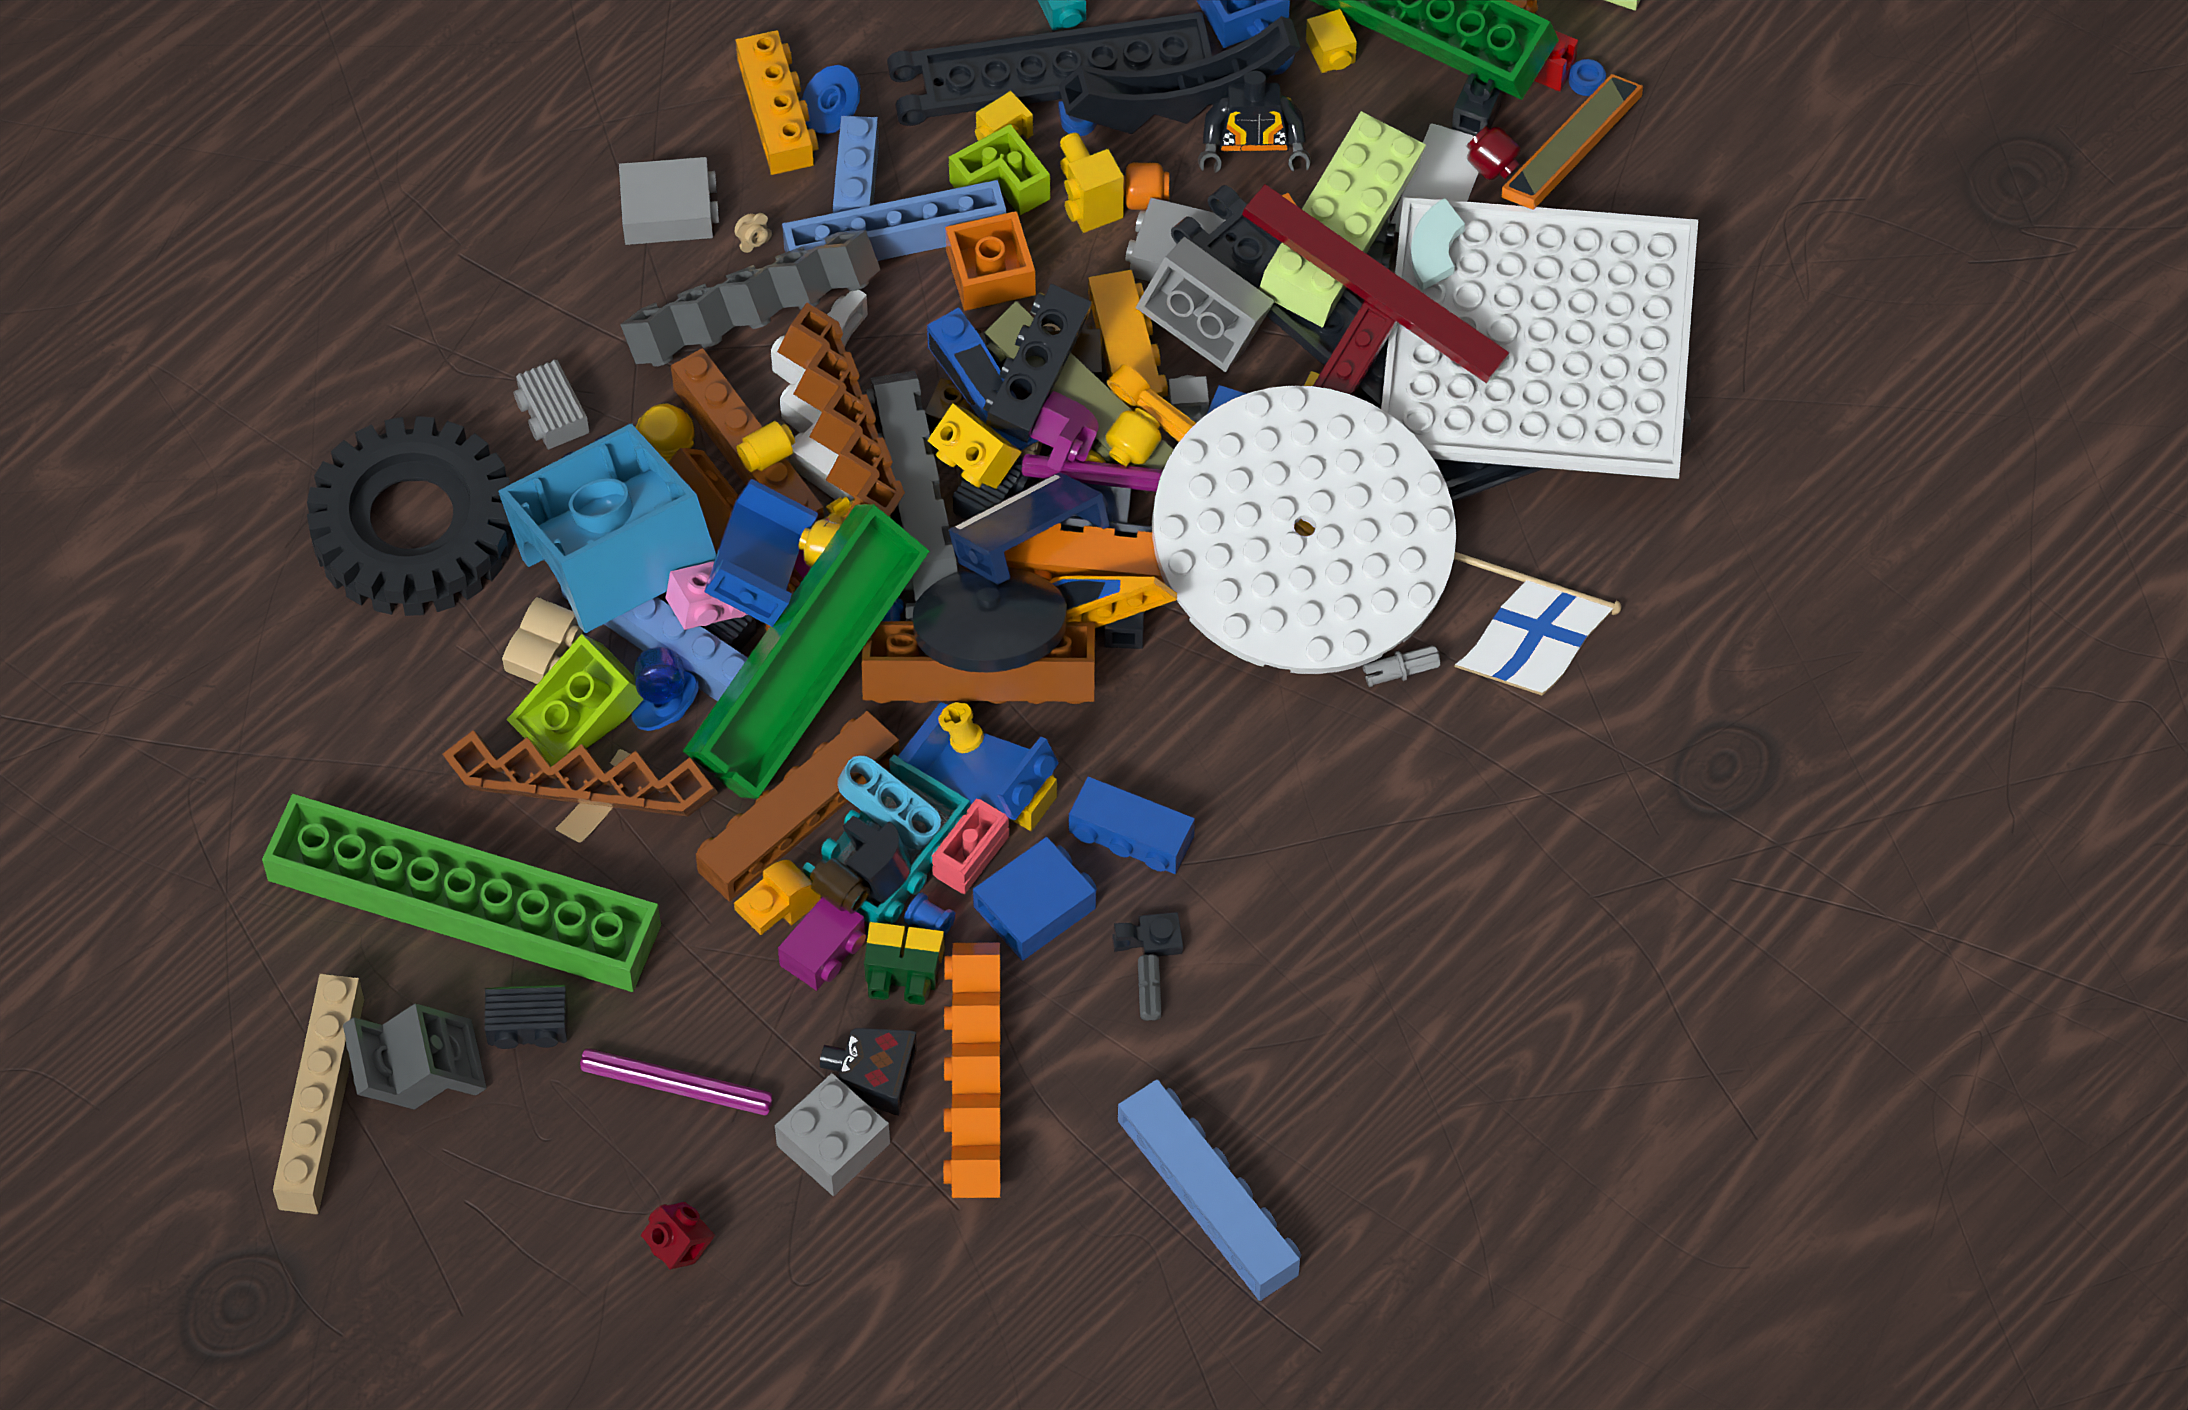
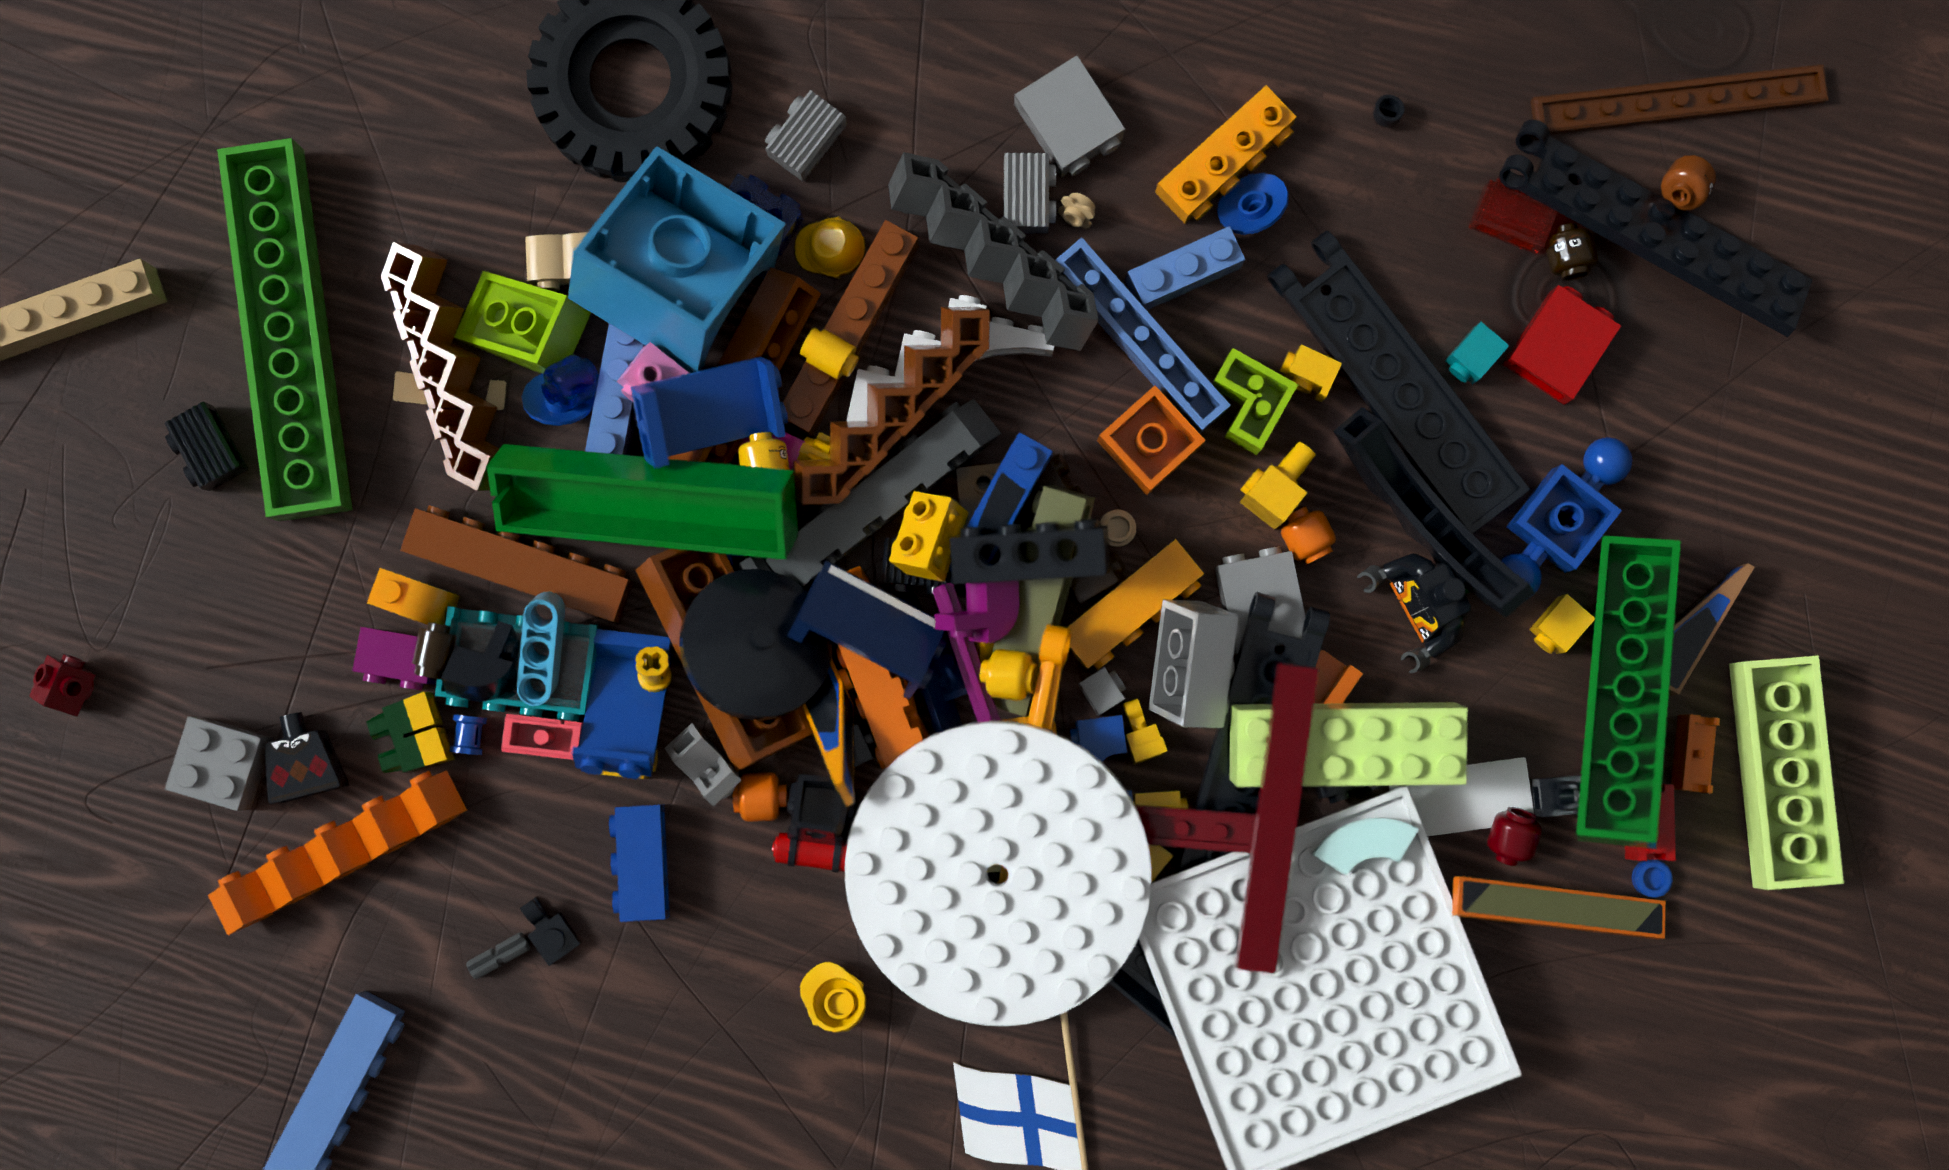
camera: 60 degrees right, 25 degrees up
(414, 1056) = (111, 378): dark grey bracket -> none
(676, 1081) = (212, 604): magenta axle -> none
(707, 257) = (1027, 191): none -> light grey brick
(1035, 898) = (530, 816): blue brick -> none
(1077, 732) = (703, 764): none -> light grey brick
(1126, 704) = (759, 797): none -> orange head
(1181, 665) = (817, 825): none -> black piece
(1250, 379) = (1143, 741): none -> yellow piece
(1343, 723) = (833, 997): none -> yellow hat
(1402, 665) = (926, 1020): light grey axle -> none

